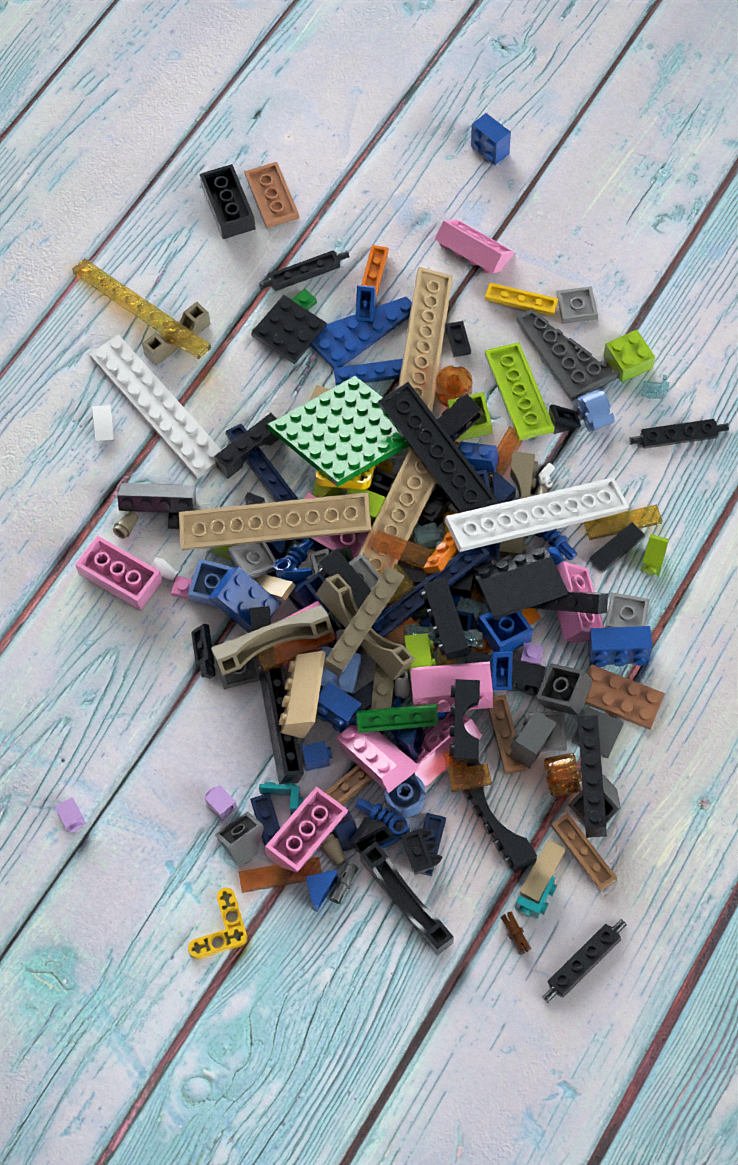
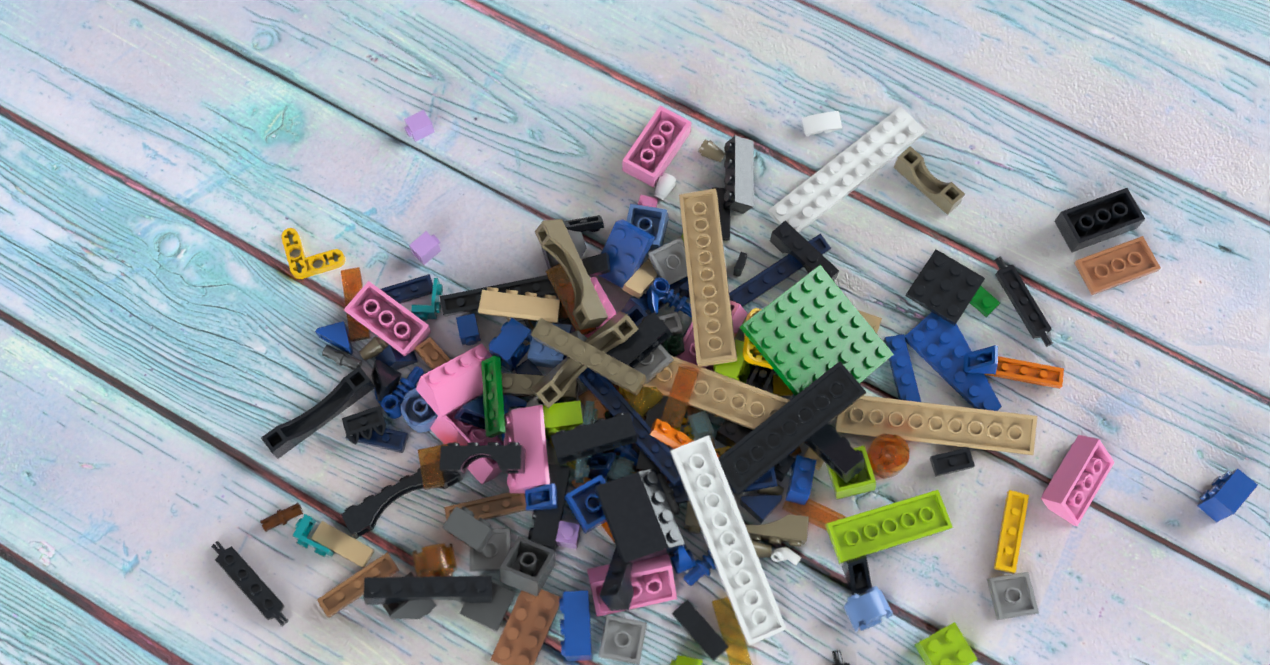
camera: 85 degrees right, 5 degrees up
(142, 308) = (955, 148): clear yellow plate -> none
(241, 838) = (388, 265): dark grey slope -> none
(568, 361) = (934, 583): dark grey wing -> none

